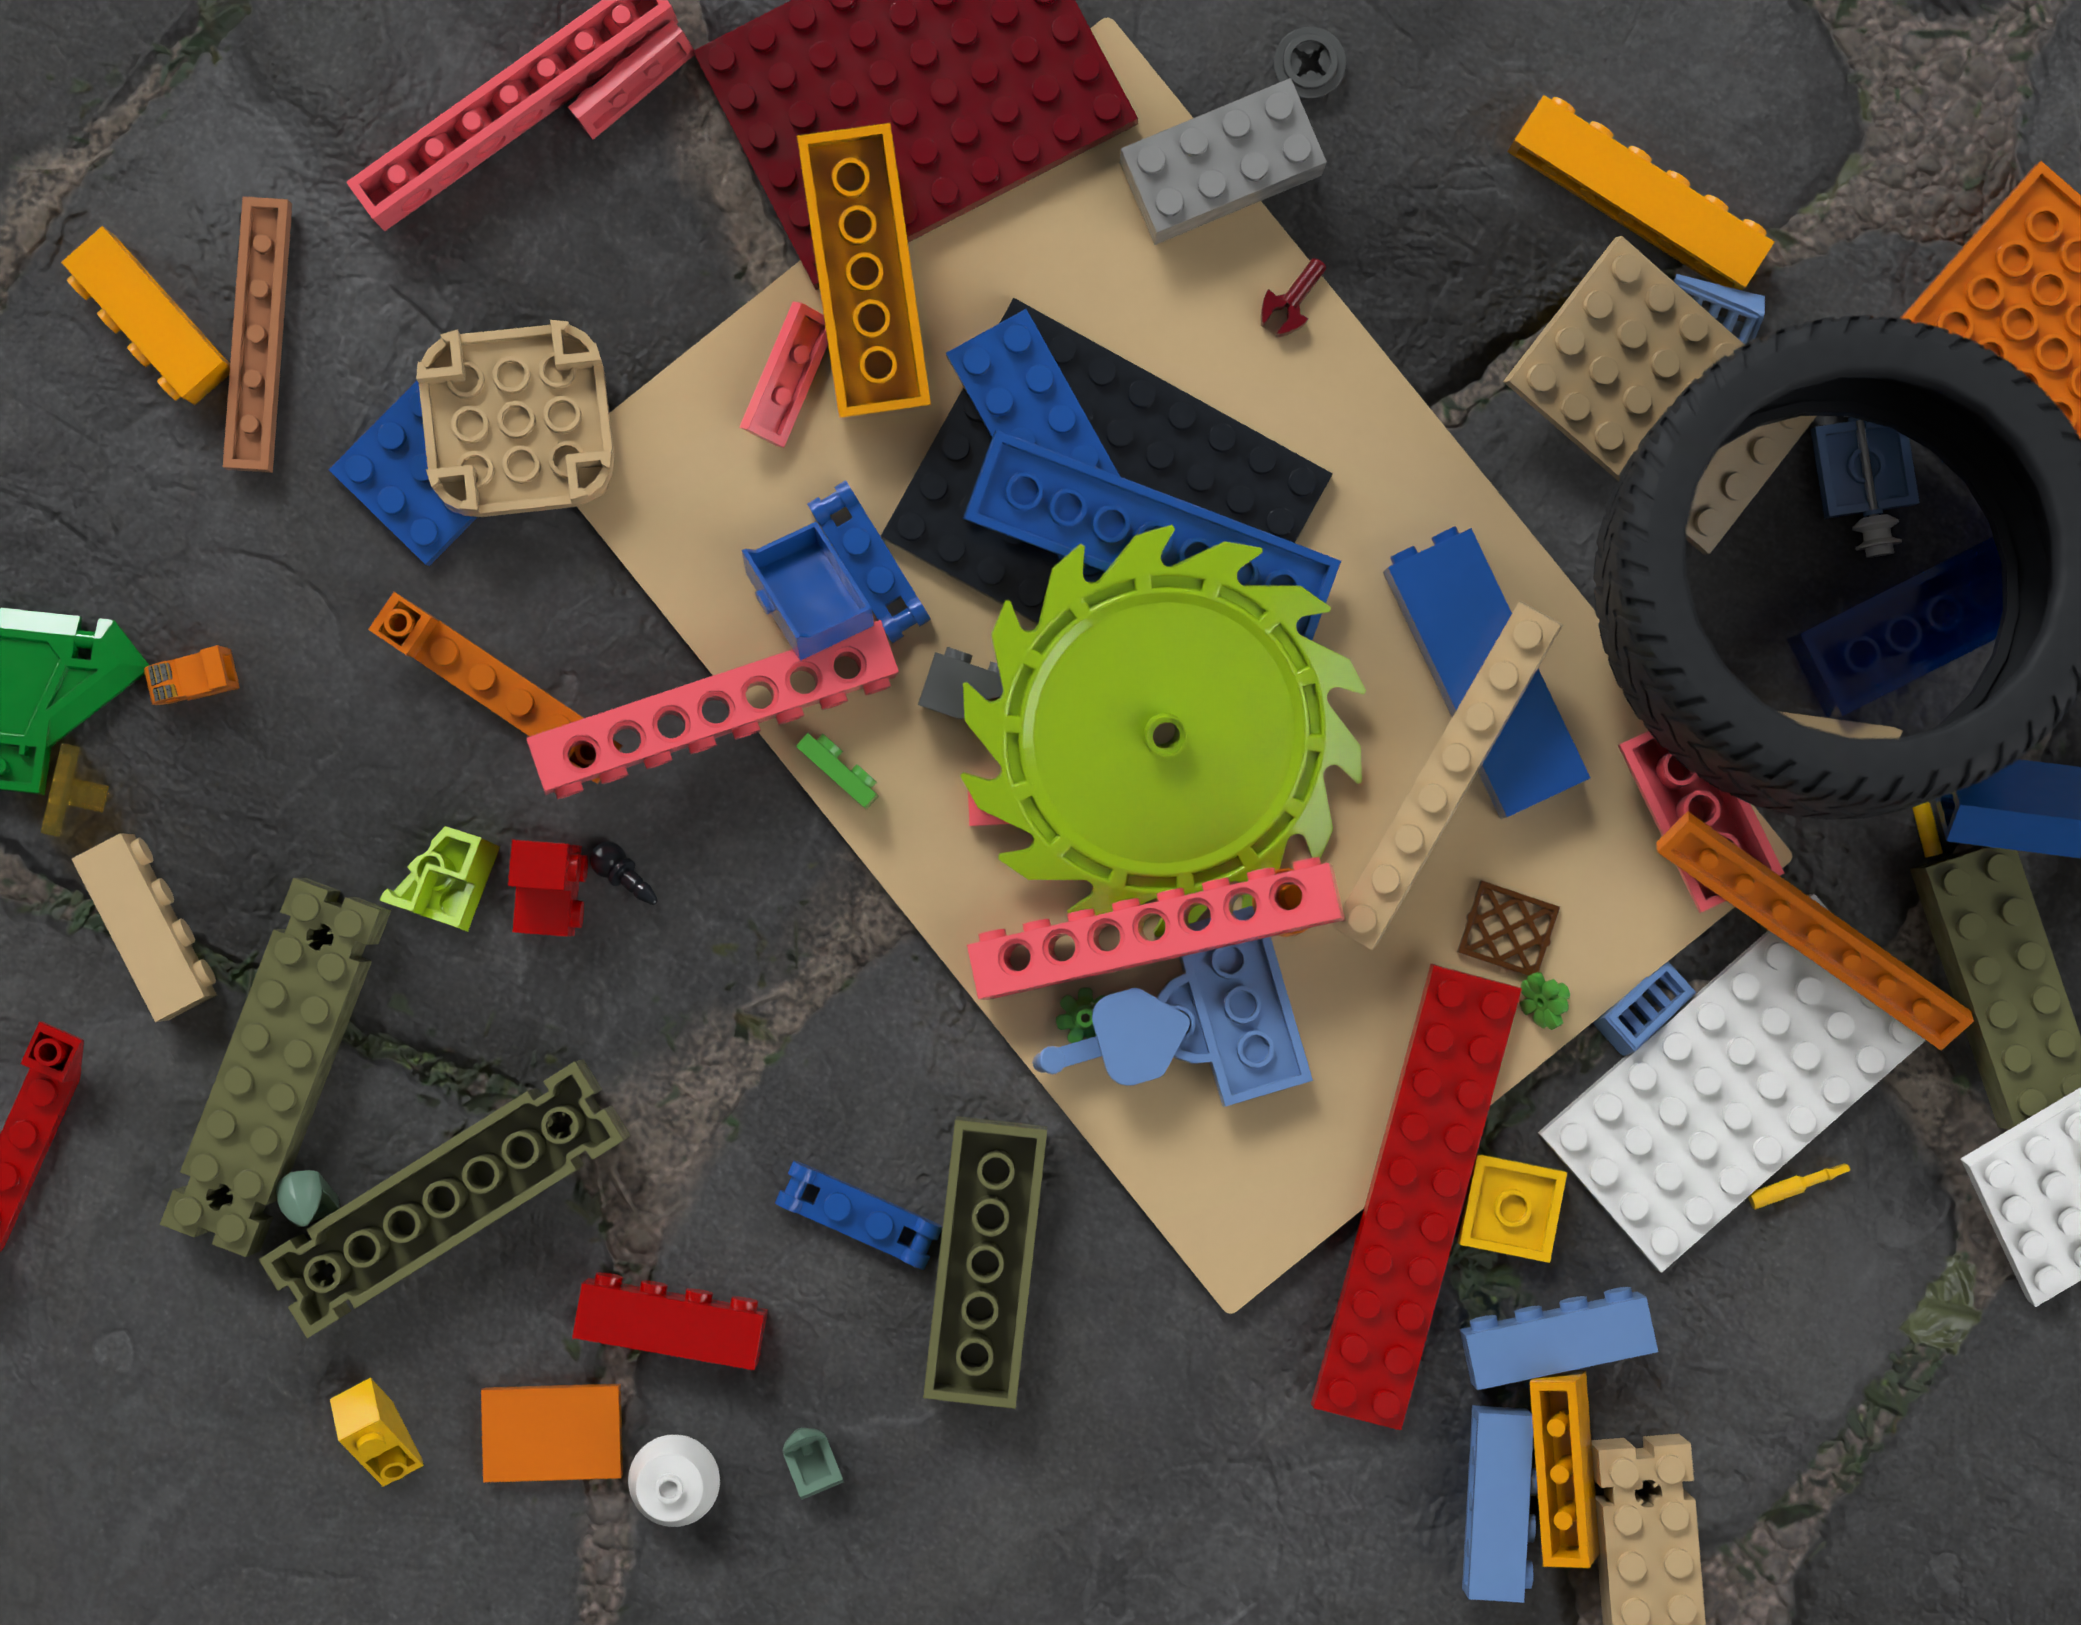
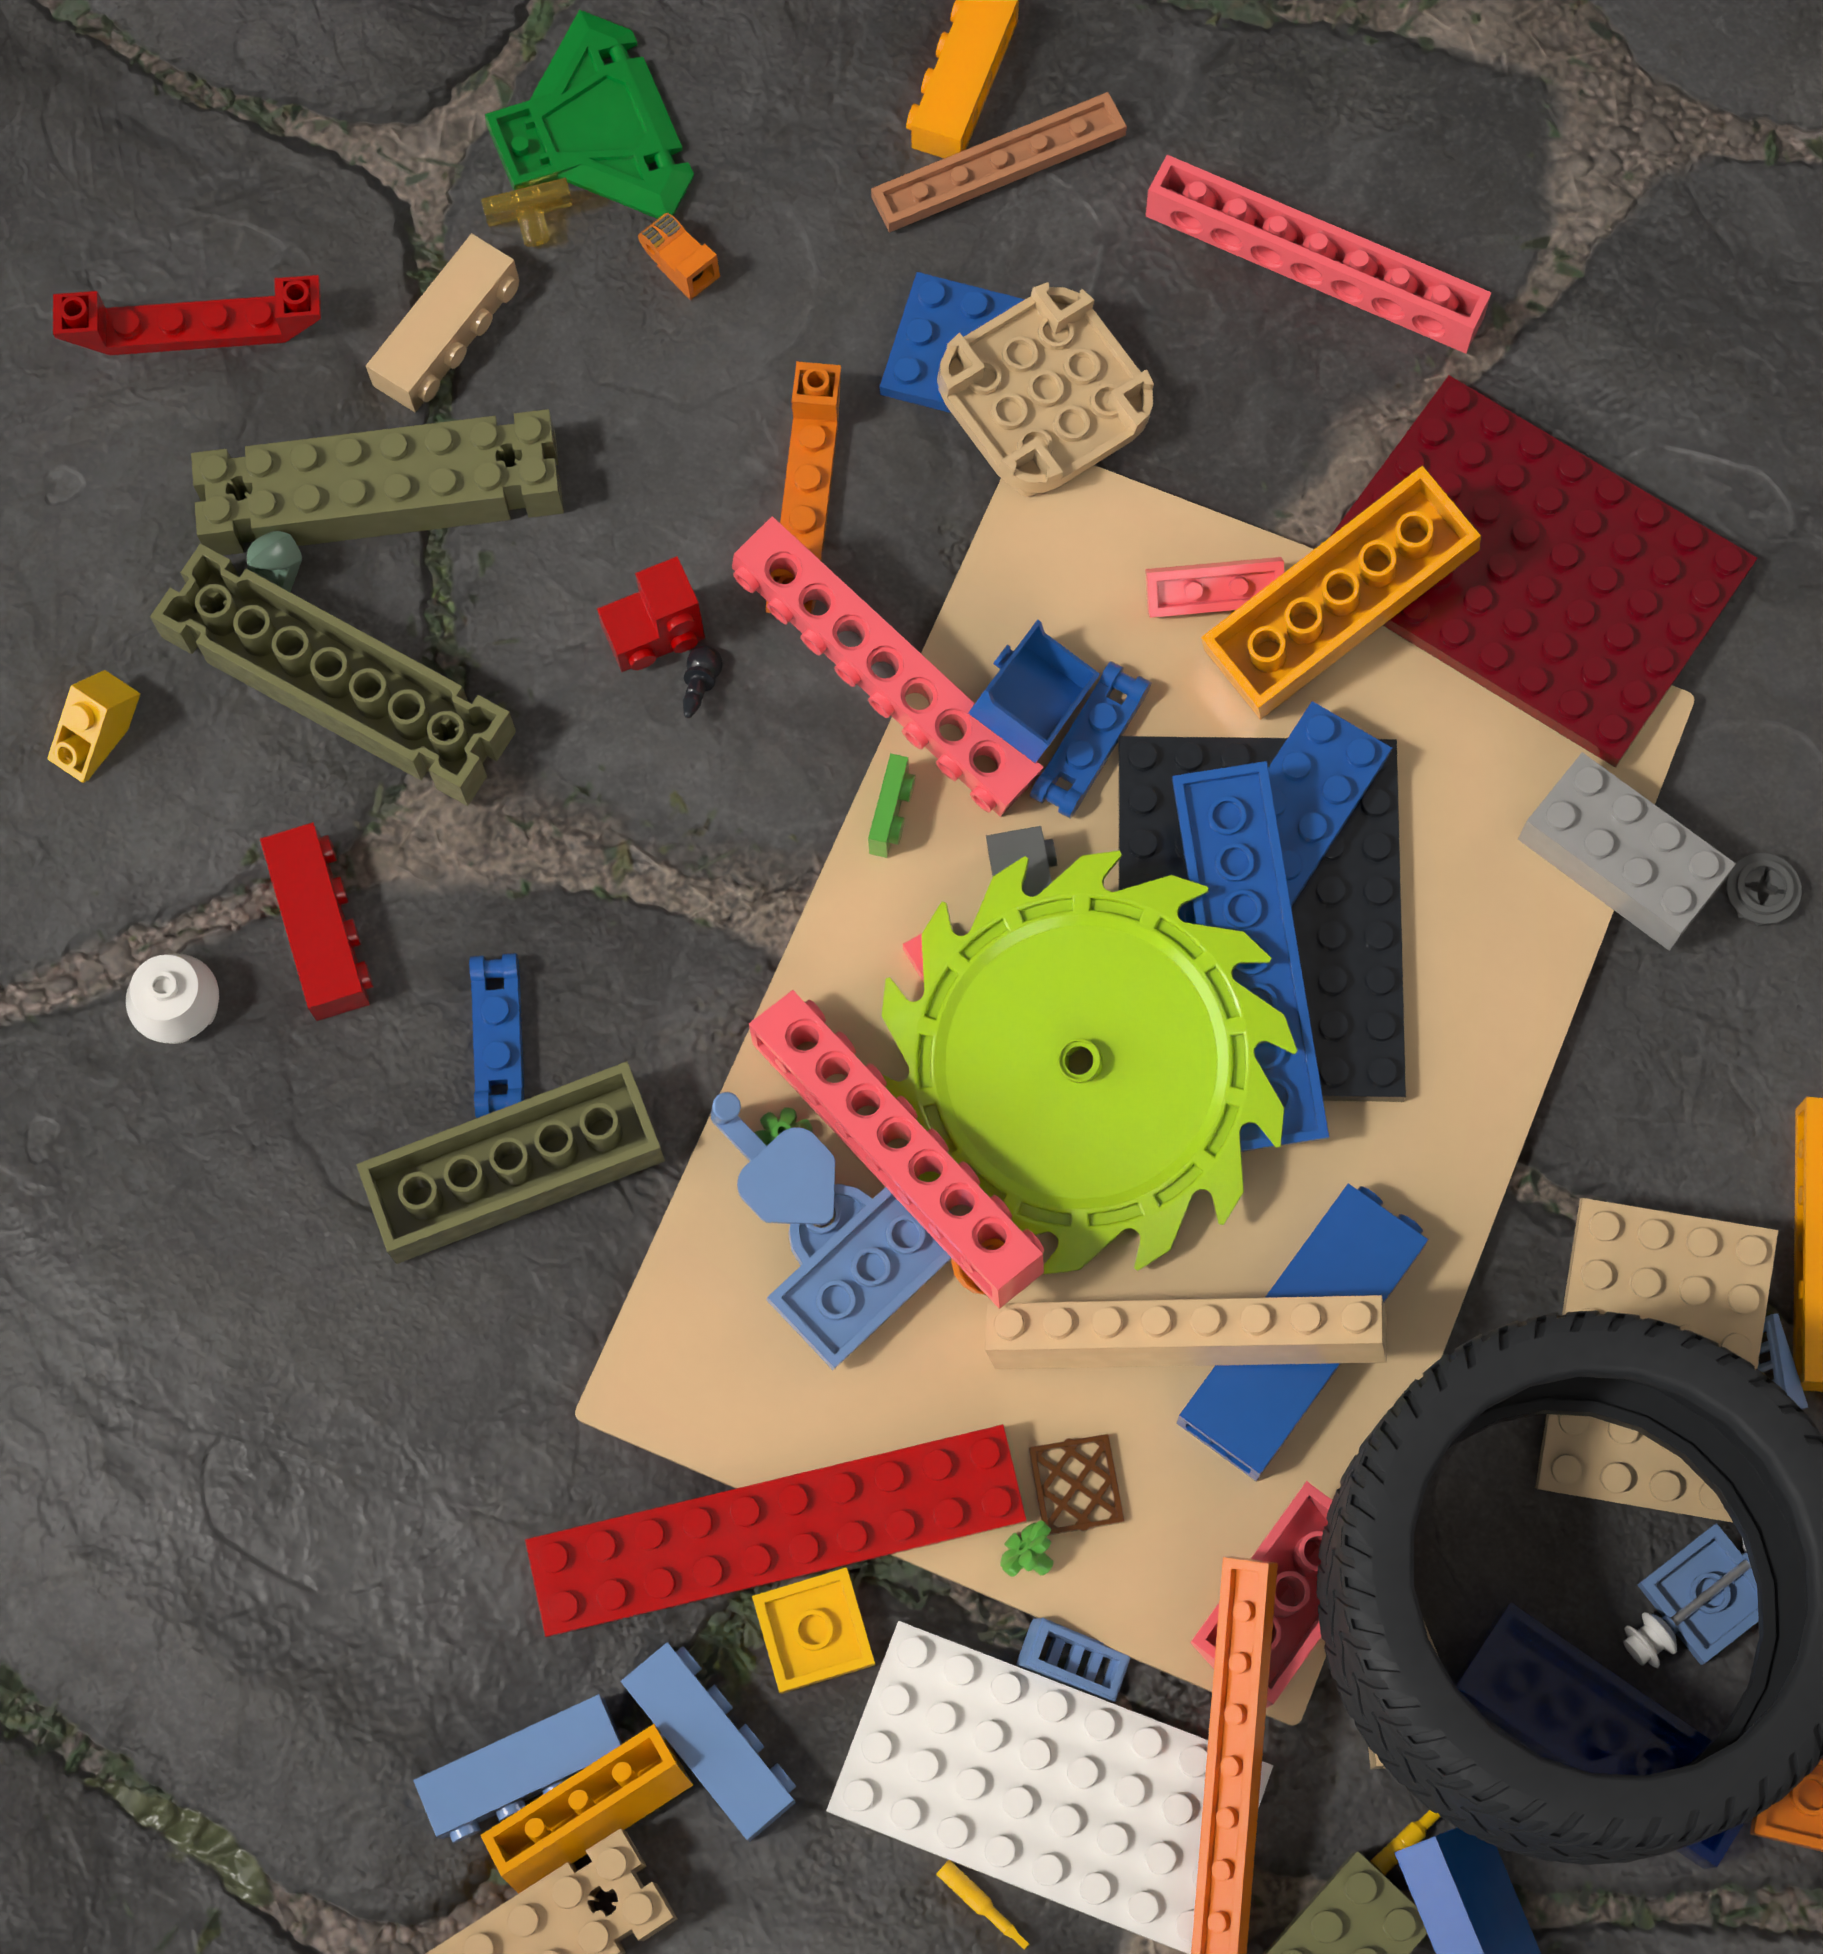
camera: 65 degrees right, 15 degrees down
(446, 879) = (614, 540): lime slope -> none
(551, 1433) = (165, 874): orange tile -> none
(632, 79) = (1393, 338): coral plate -> none
(811, 1462) = (248, 1107): sand green plate -> none
(1293, 298) = (1540, 981): dark red bar -> none

